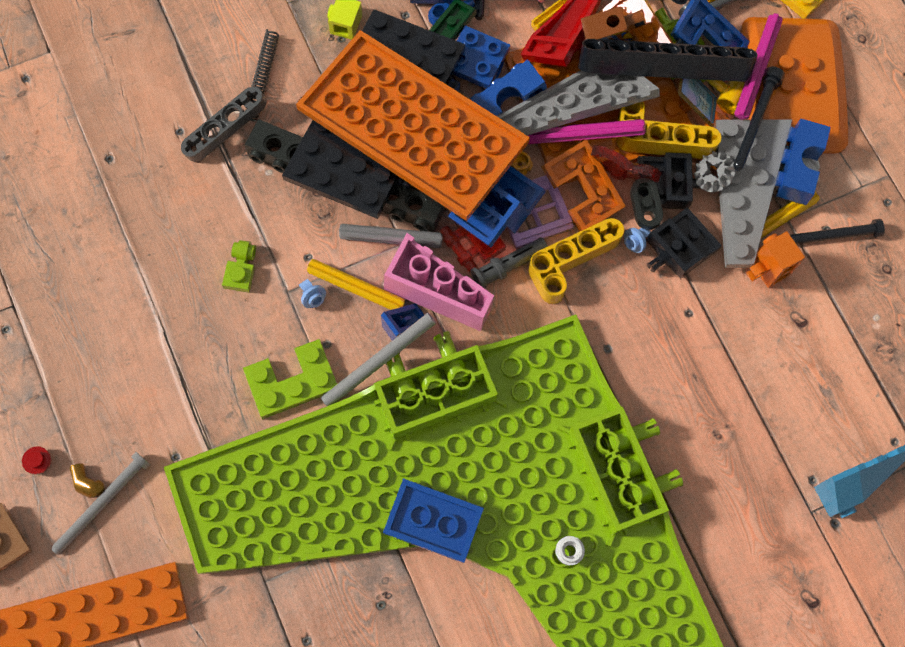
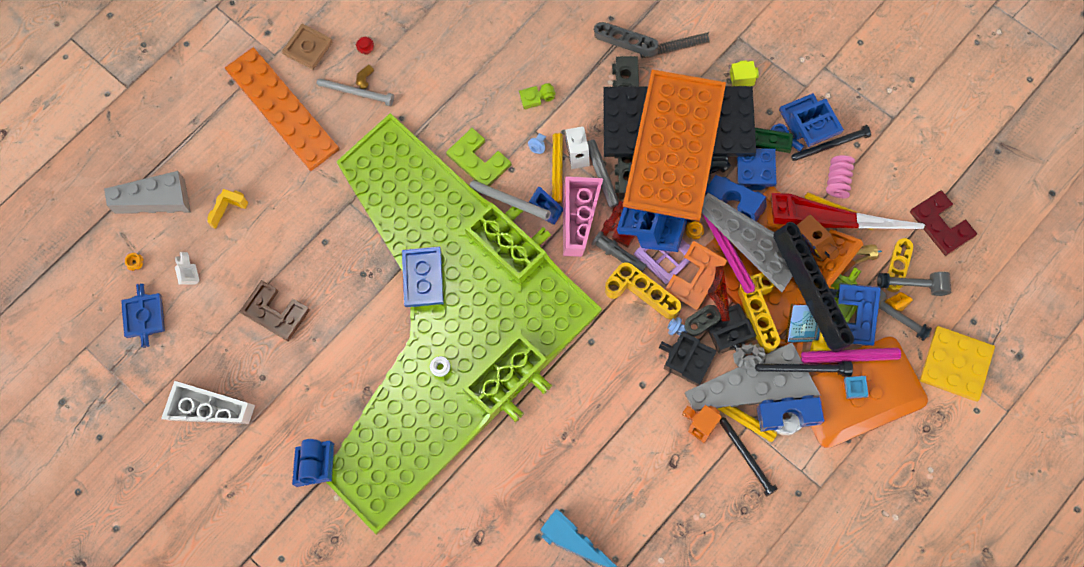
camera: 75 degrees right, 0 degrees up
(342, 246) = (577, 144): none -> white torso
(801, 77) = (856, 387): none -> dark azure plate

